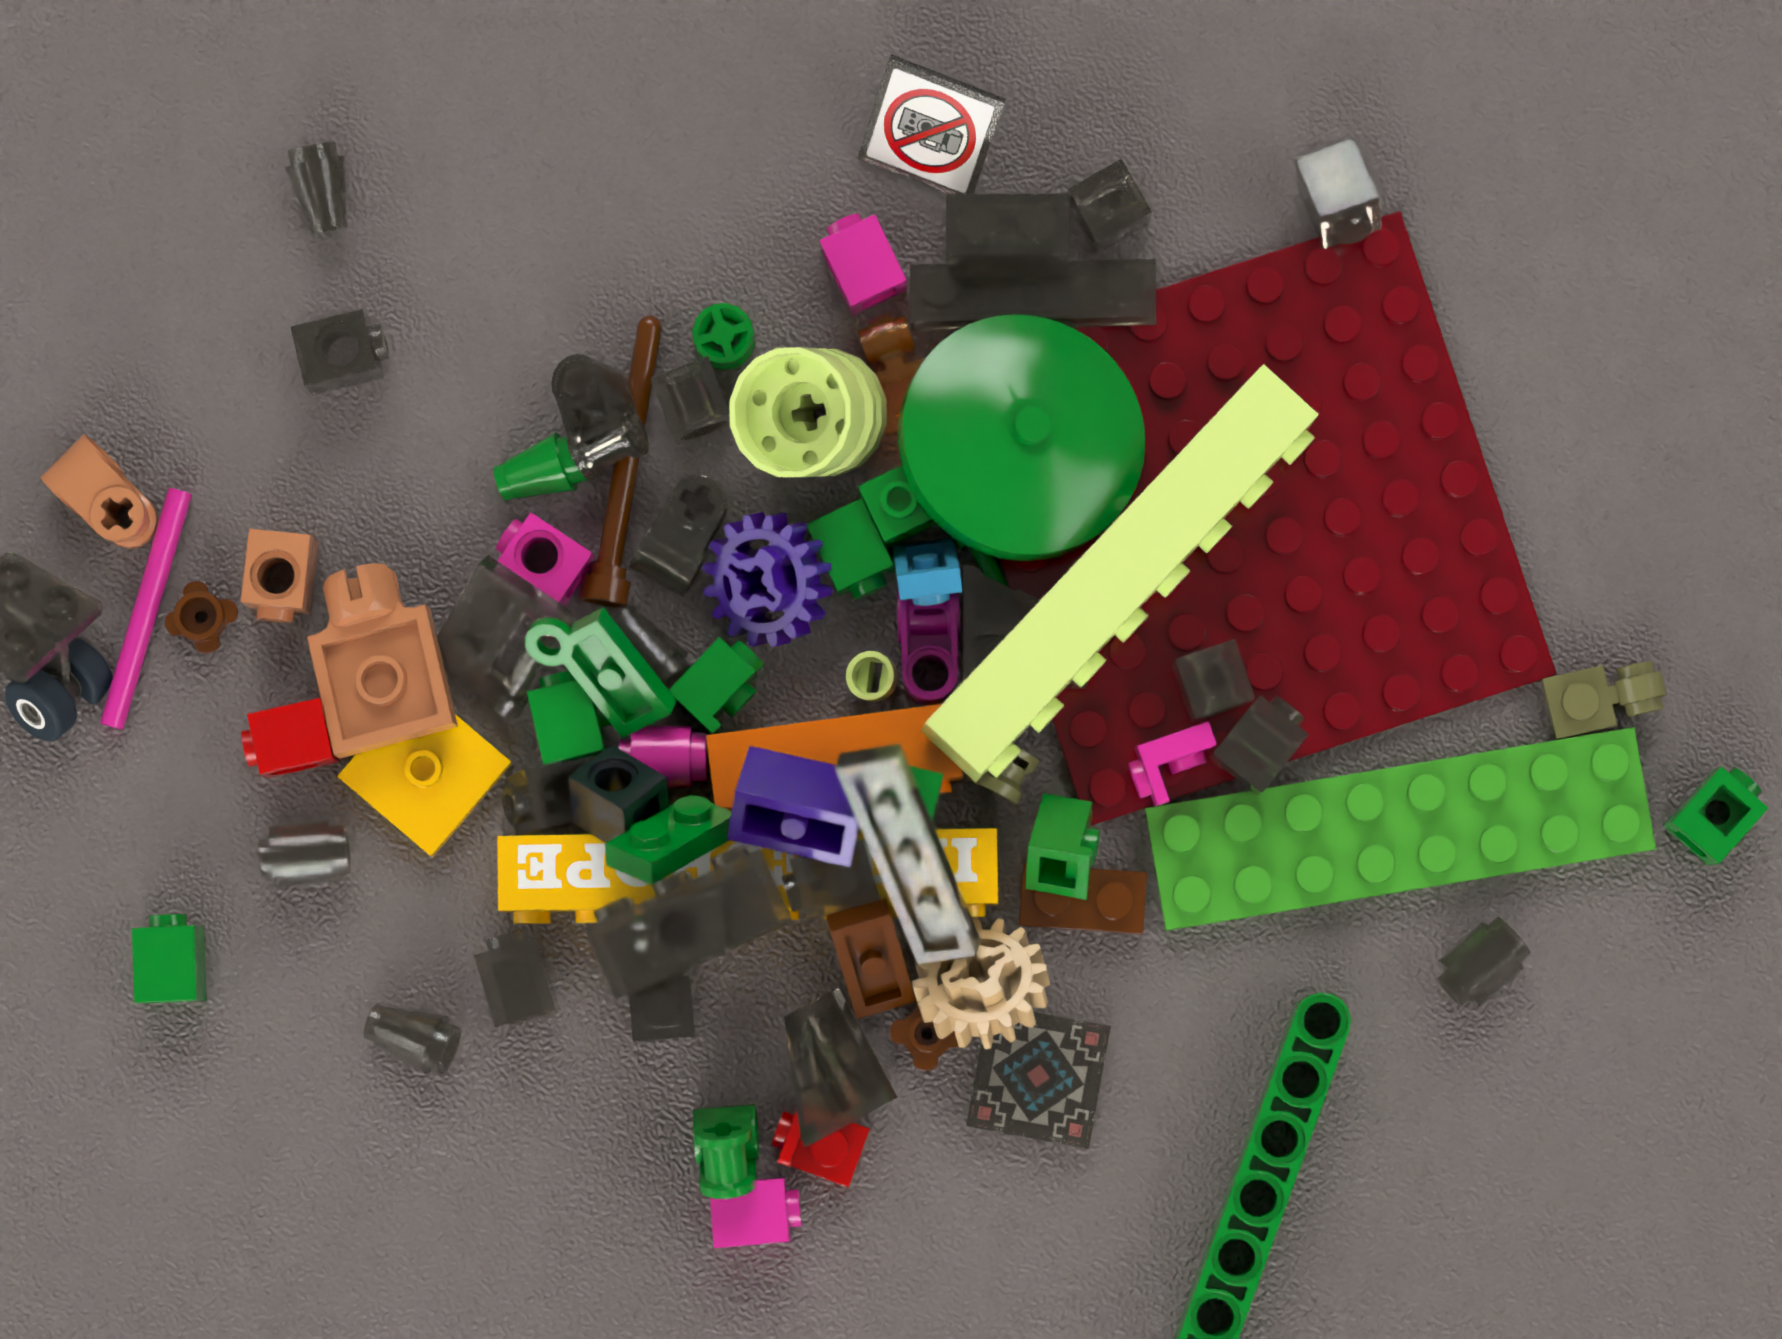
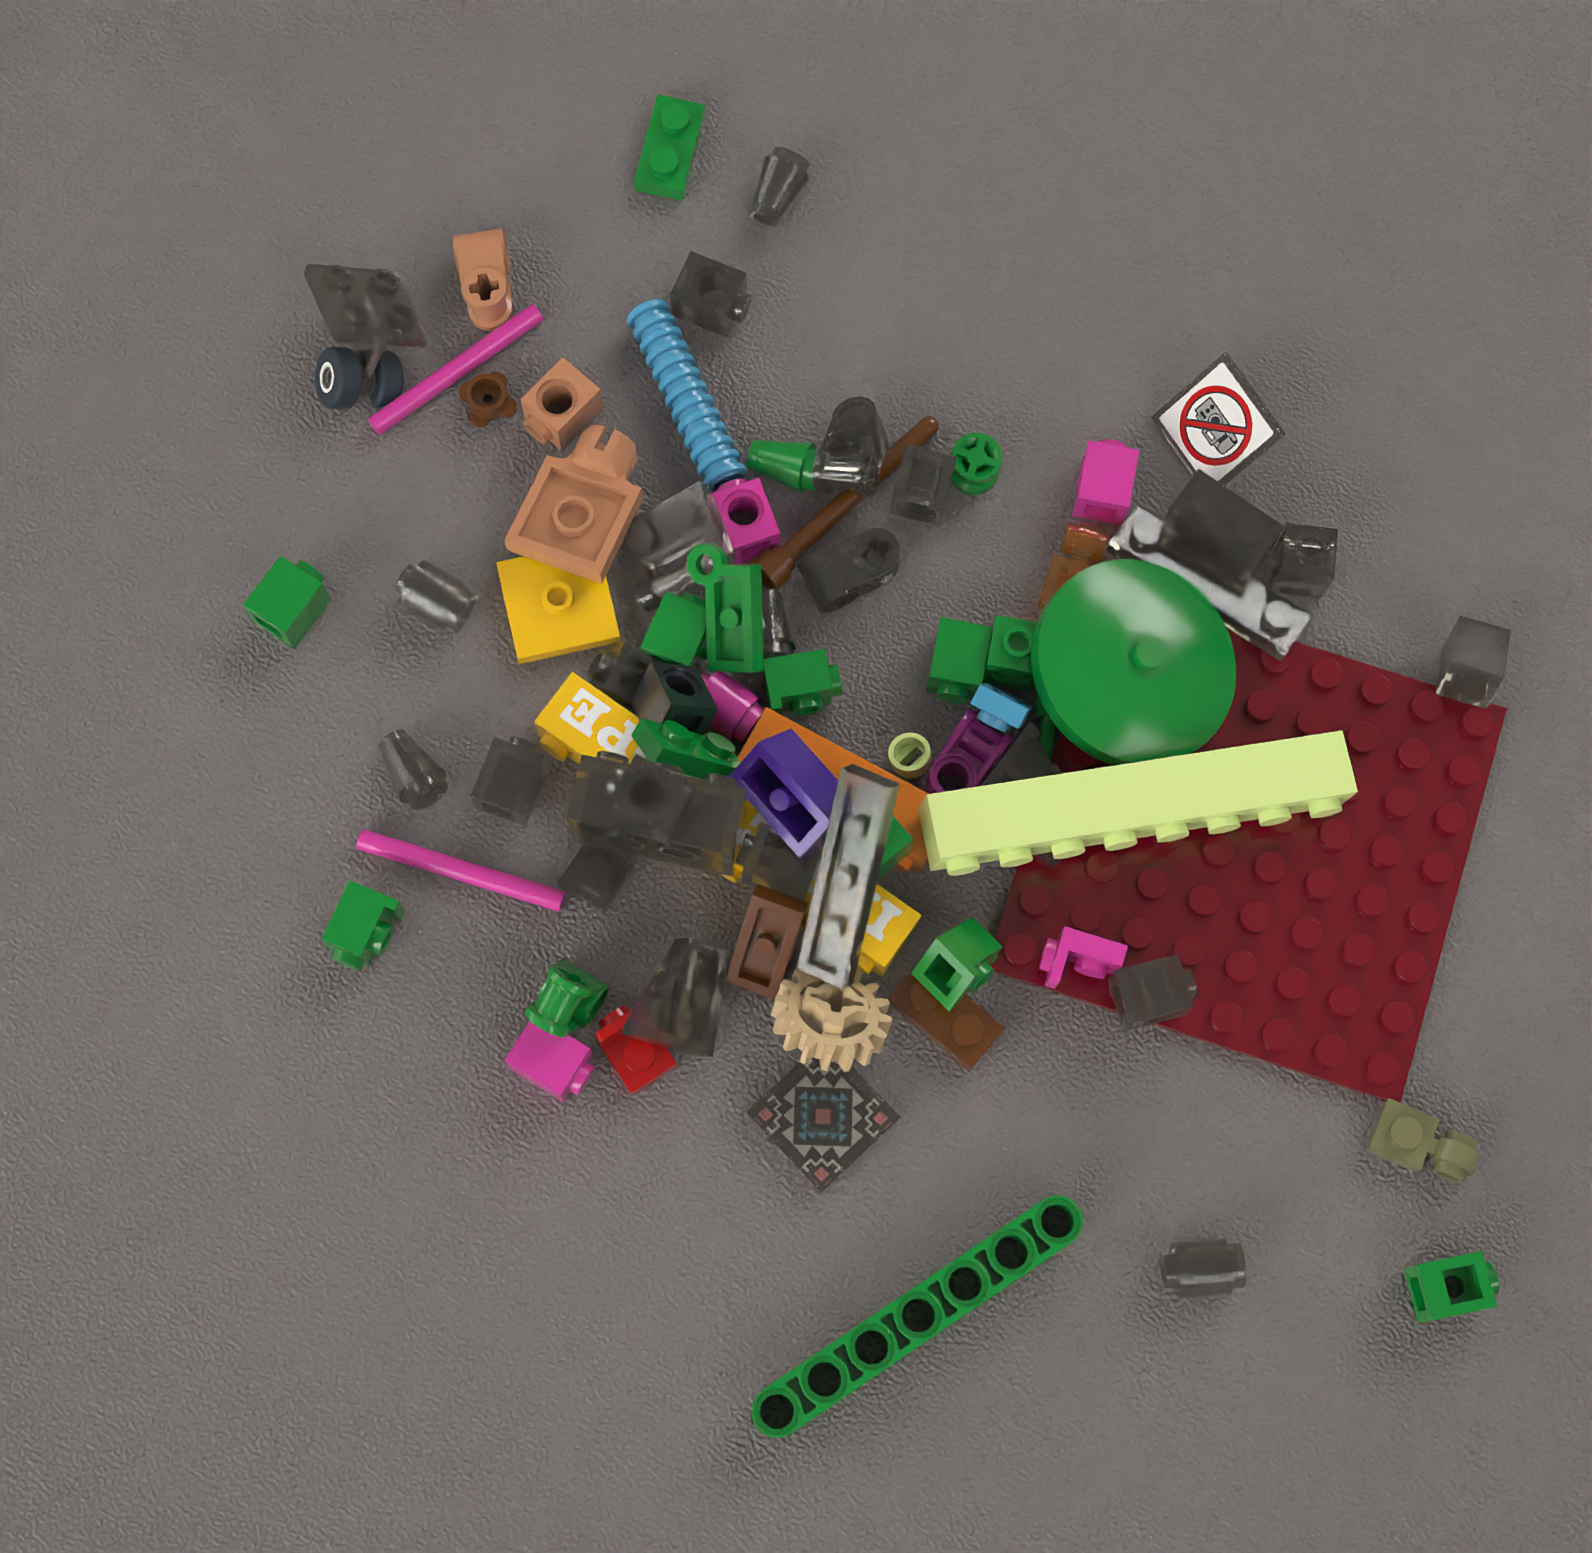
camera: 25 degrees right, 10 degrees down
(179, 220) = (669, 147): none -> green plate
(288, 739) = (482, 514): red brick -> none
(392, 472) = (685, 393): none -> dark azure piece
(482, 1220) = (361, 925): none -> green brick
(531, 1096) = (461, 870): none -> dark pink bar
(767, 579) = (886, 637): dark purple gear -> none
(776, 405) = (997, 543): yellowish green wheel -> none
(924, 1051) = (755, 1038): reddish brown plate -> none
(1008, 783) = (952, 890): olive wheel -> none
(1213, 681) = (1150, 923): clear smoke brick -> none
(1400, 829) = (1211, 1132): bright green plate -> none

